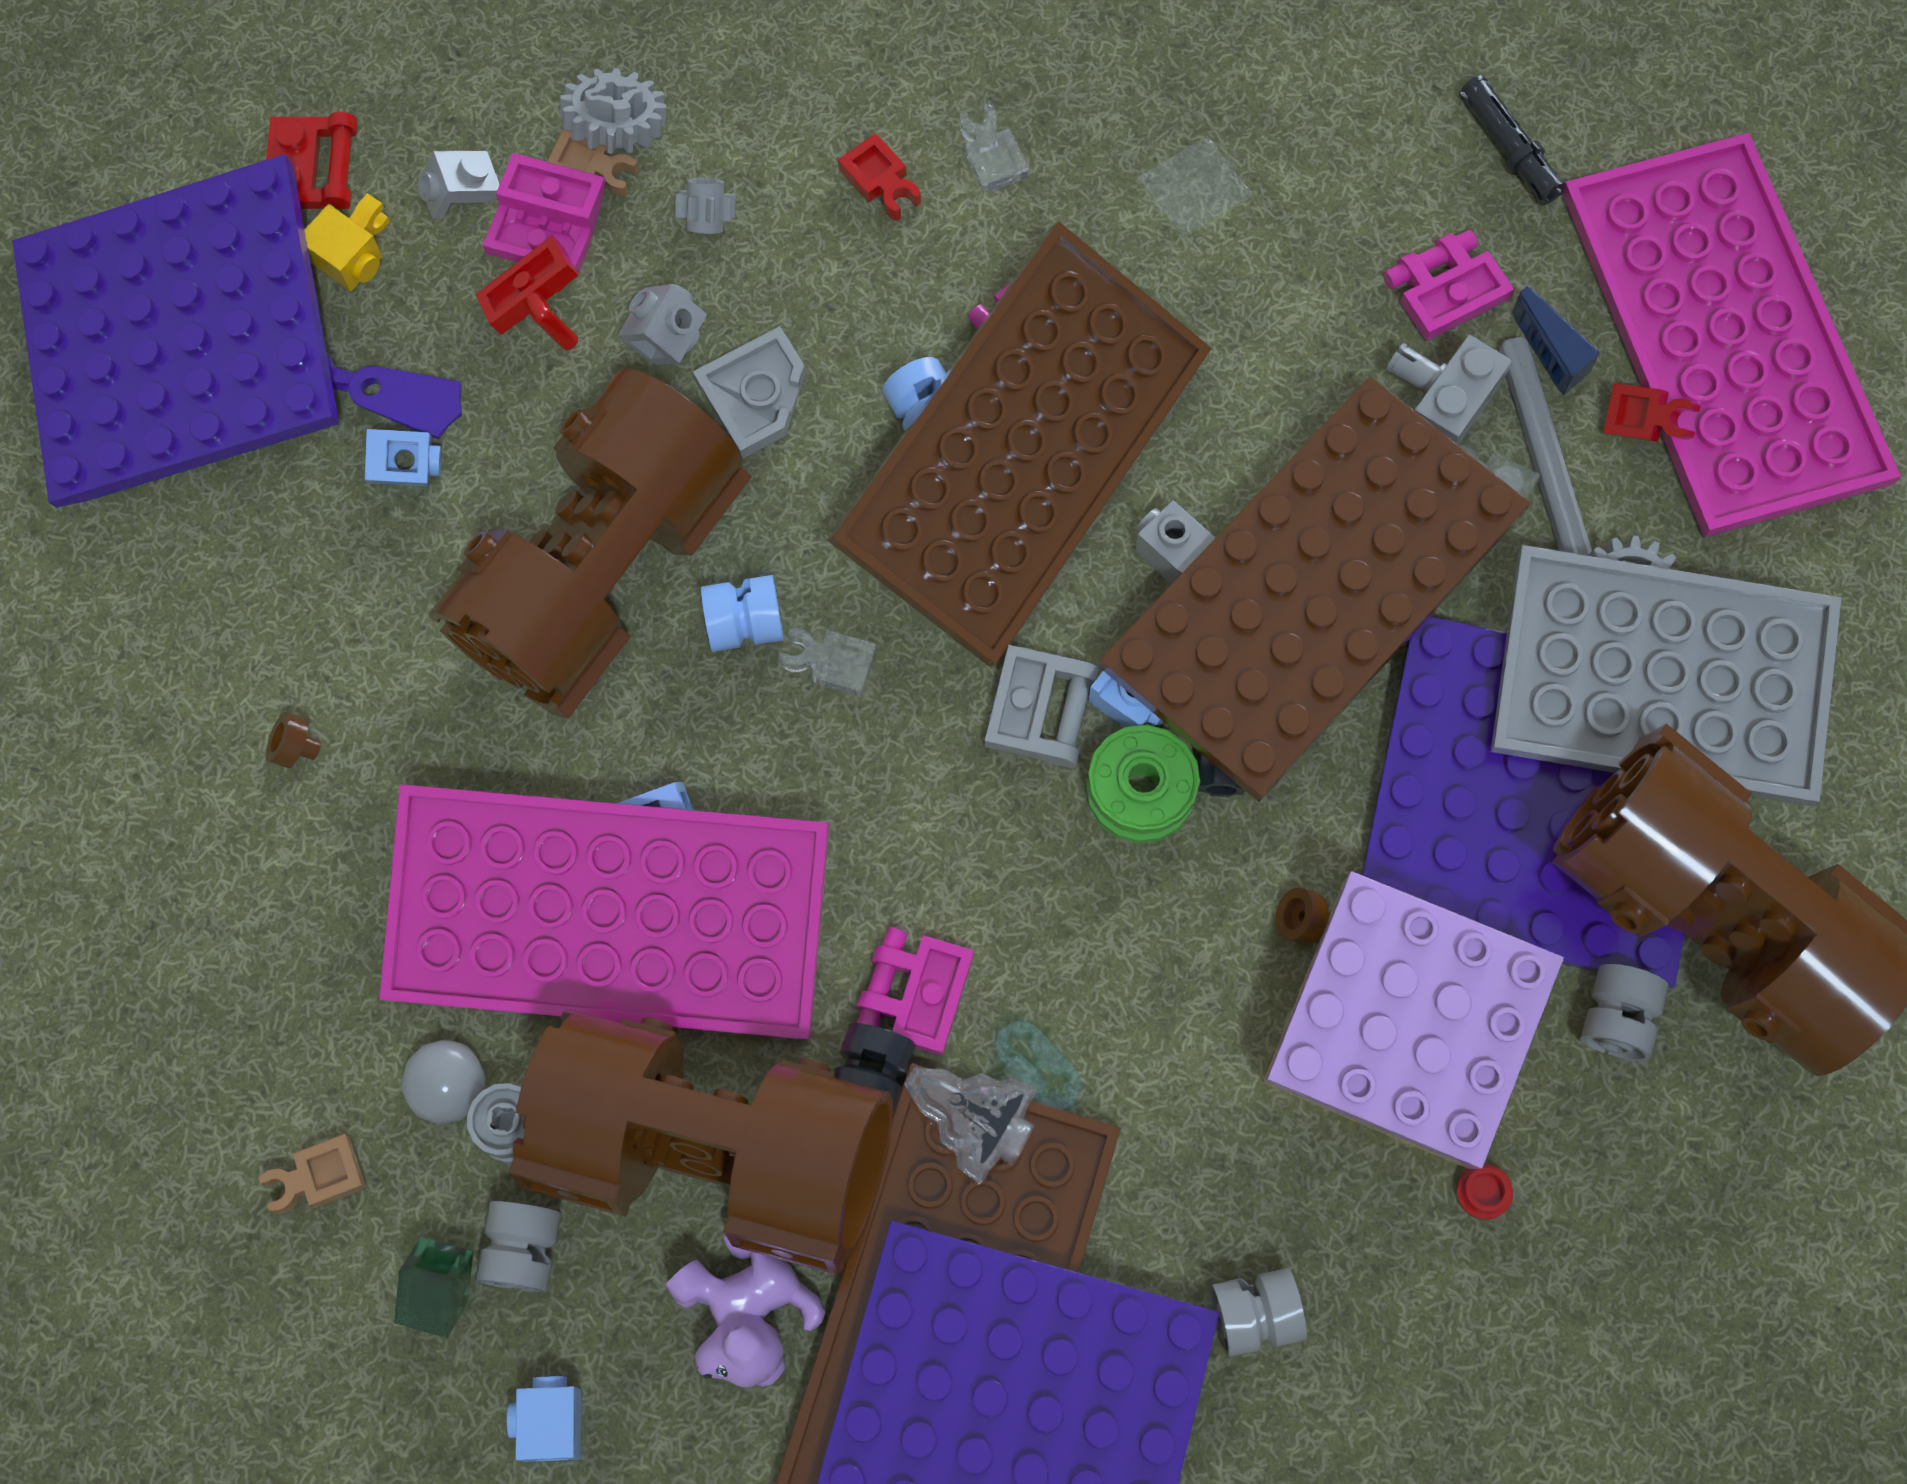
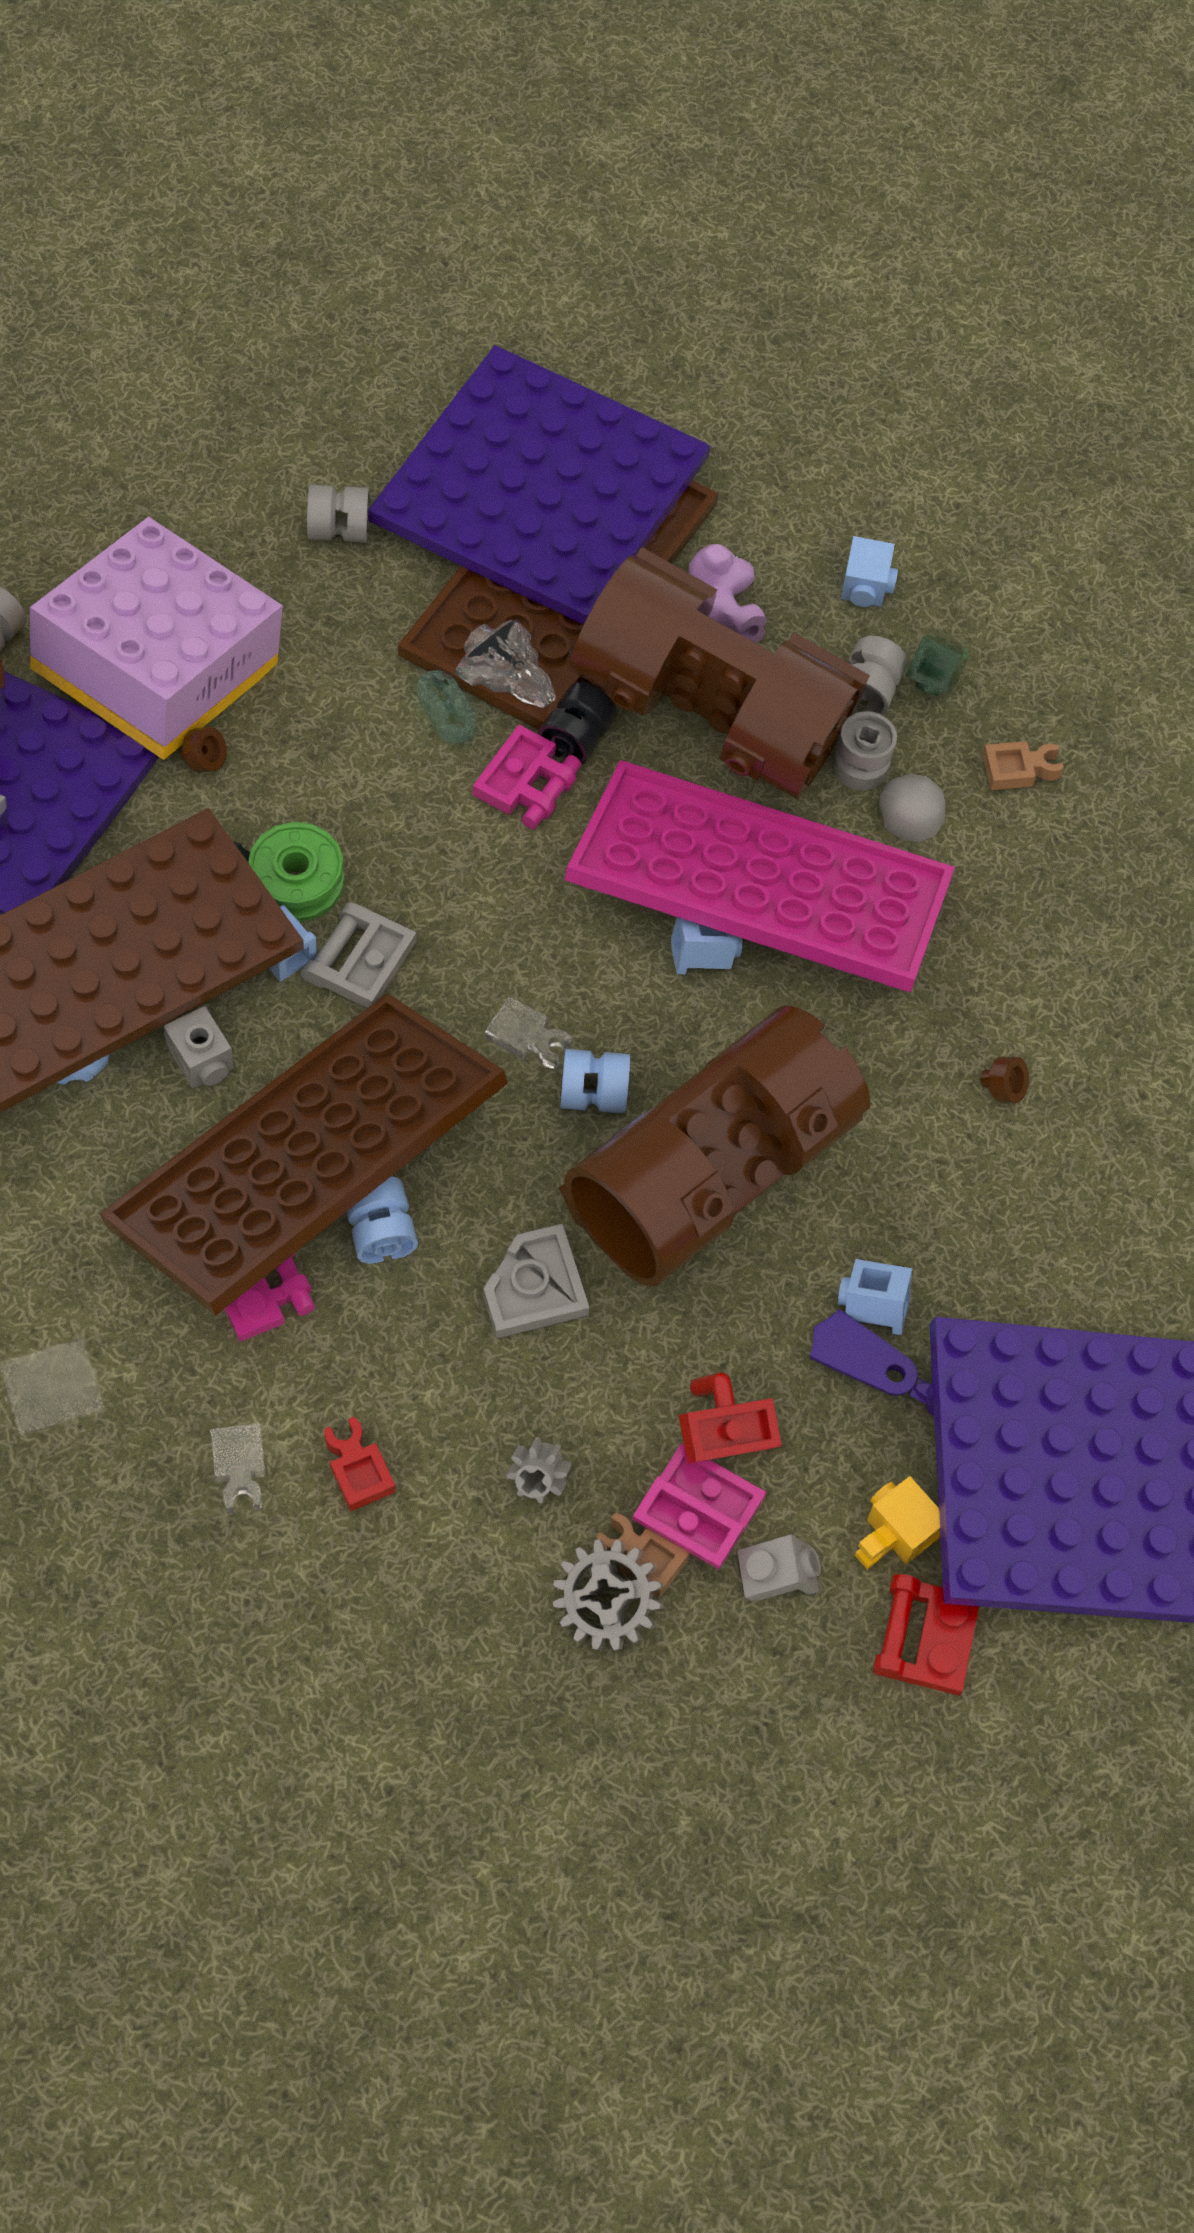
camera: 175 degrees left, 10 degrees down
(662, 324) = (607, 1356): light grey brick -> none

